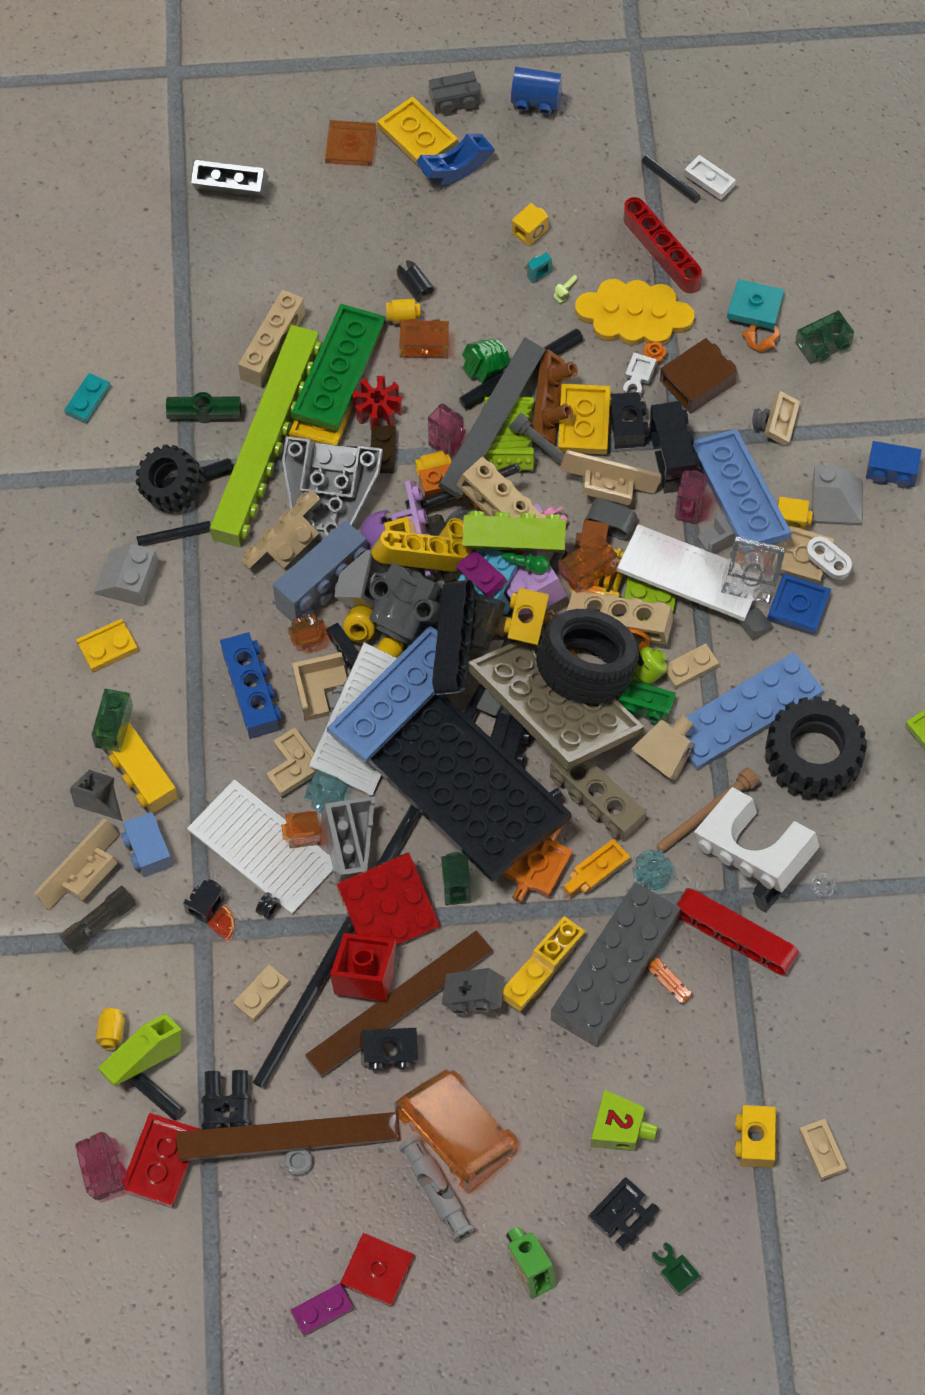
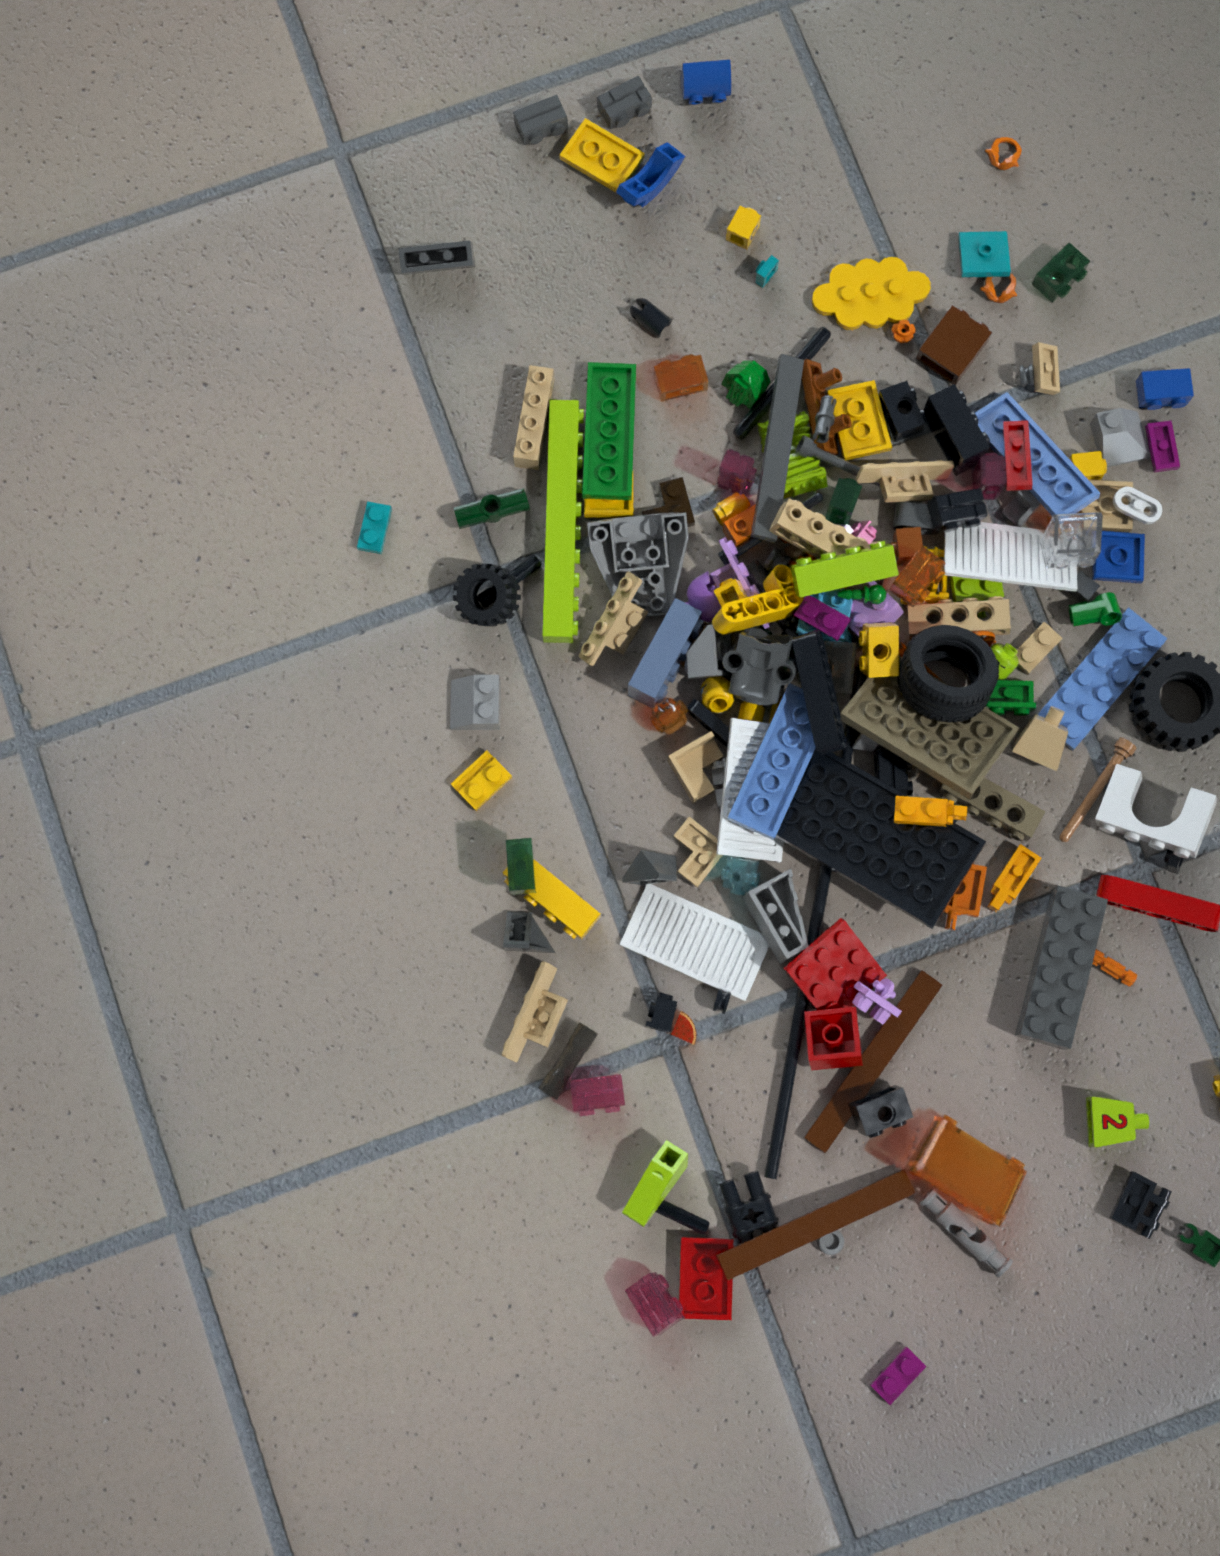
camera: 15 degrees left, 15 degrees up
(110, 1029) = (617, 1166): yellow brick -> none
(115, 957) = (597, 1094): none -> clear pink brick
(147, 845) = (589, 973): medium blue brick -> none
(173, 533) = (506, 646): black bar -> none
(238, 763) = (651, 869): none -> dark grey slope
(257, 721) = (648, 820): blue brick -> none
(261, 993) = (743, 1087): tan plate -> none
(301, 829) = (730, 918): clear orange brick -> none
(350, 143) = (539, 184): clear orange plate -> none
(370, 88) = (541, 120): none -> dark grey brick
(377, 402) = (665, 453): red gear -> none
(377, 1269) = (935, 1323): red plate -> none
(402, 310) = (650, 353): yellow brick -> none
(425, 952) = (883, 1008): none -> lavender hips
(456, 879) = (891, 928): clear green brick -> none
(473, 991) = (956, 1035): dark grey brick -> none
(523, 772) = (927, 811): none -> light orange hinge
(530, 1262) = (1084, 1285): bright green torso -> none
(541, 481) = (843, 501): none -> clear green brick
(543, 964) = (993, 987): yellow slope -> none
(546, 404) = (824, 419): none -> dark grey pin
(561, 293) = (795, 292): yellowish green hand -> none
(639, 371) = (896, 355): white plate -> none
(649, 516) = (957, 509): none -> black brick
(652, 869) = (1060, 872): clear light blue brick -> none
(662, 245) = (871, 205): red beam -> none
(670, 178) = (861, 140): black bar -> none
(709, 177) = (899, 129): white plate -> none
(722, 481) = (1017, 455): none -> red plate
(766, 646) = (1102, 609): none -> green piece
(806, 230) = (993, 154): none -> orange piece
(875, 515) = (1162, 446): none -> magenta plate

